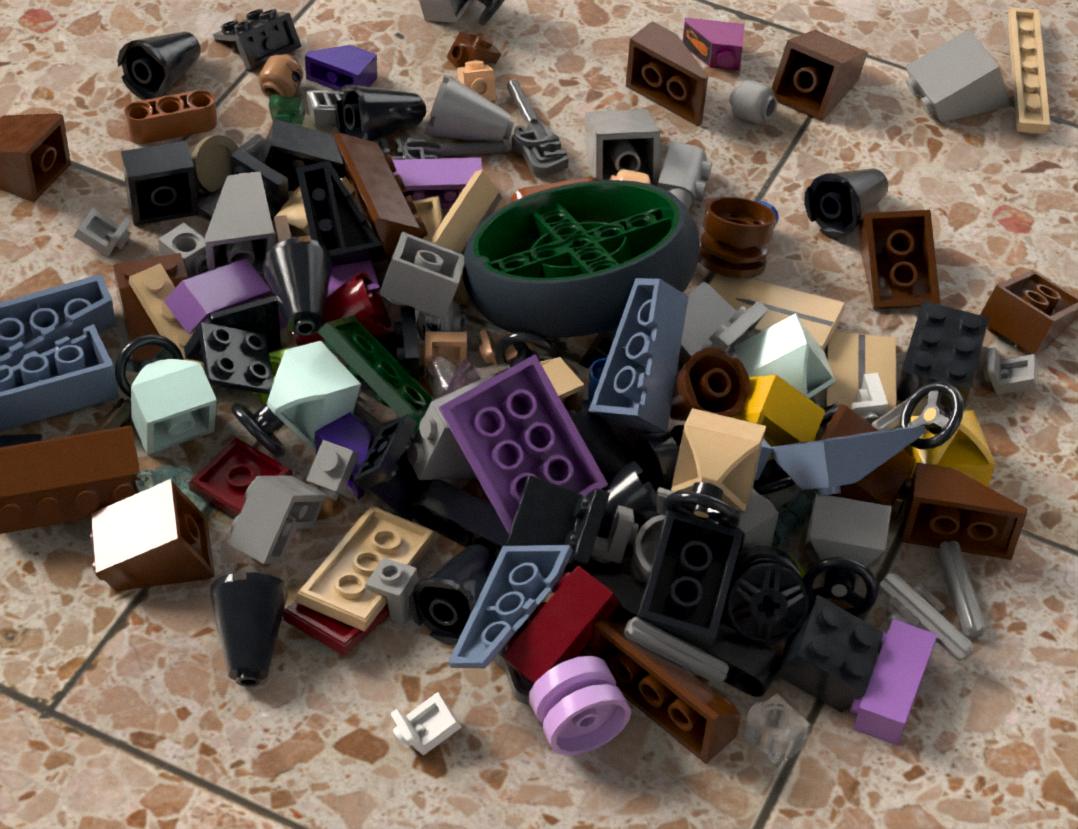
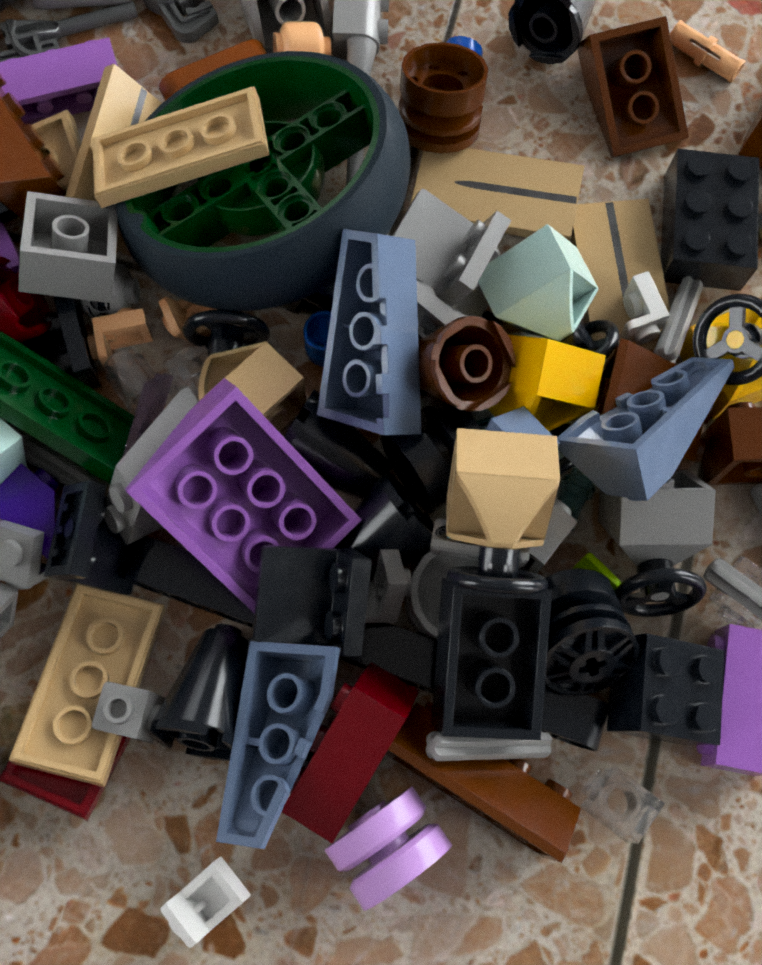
camera: 15 degrees left, 25 degrees up
(522, 222) = (178, 147): none -> tan tile
(969, 249) = (728, 64): none -> light nougat pin

